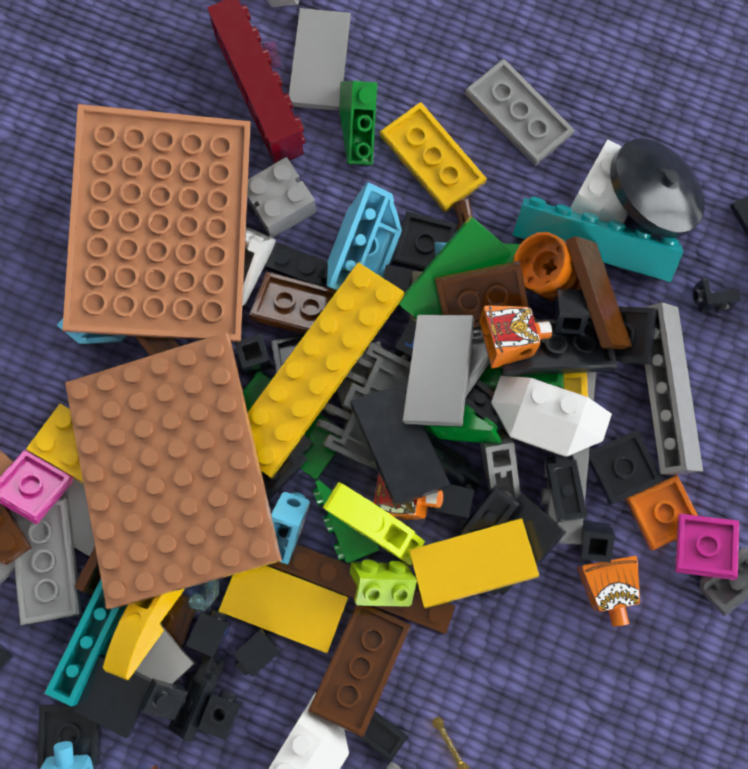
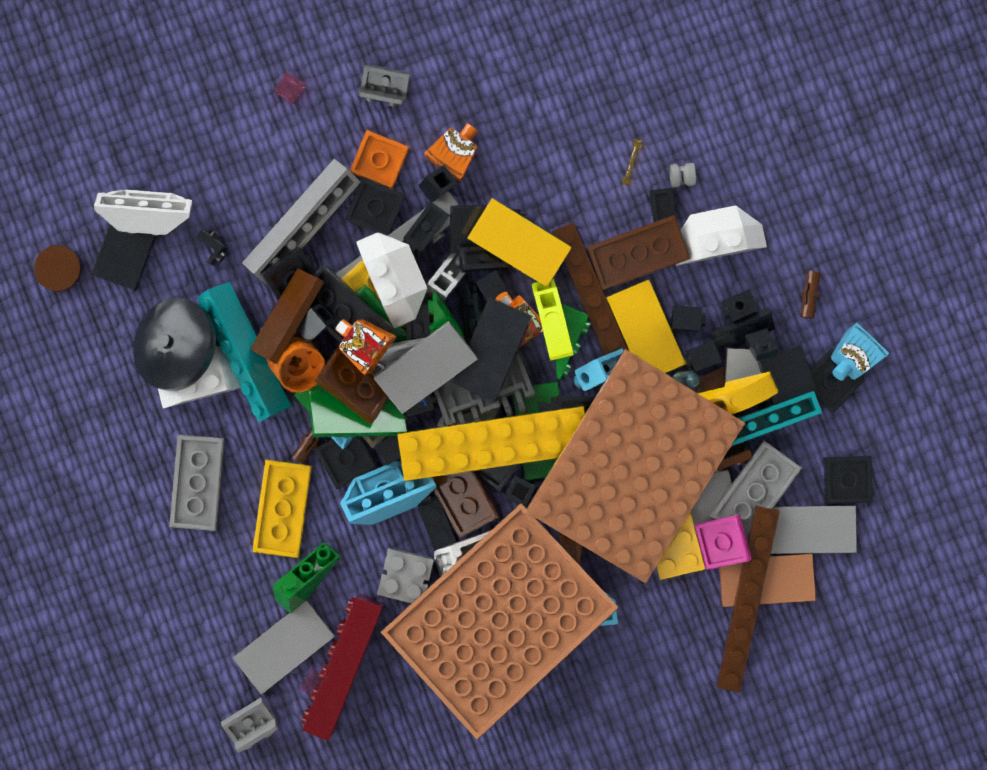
camera: 135 degrees left, 10 degrees up
(383, 583) = (580, 283): lime bracket -> none
(707, 546) = (379, 117): dark pink tile -> none

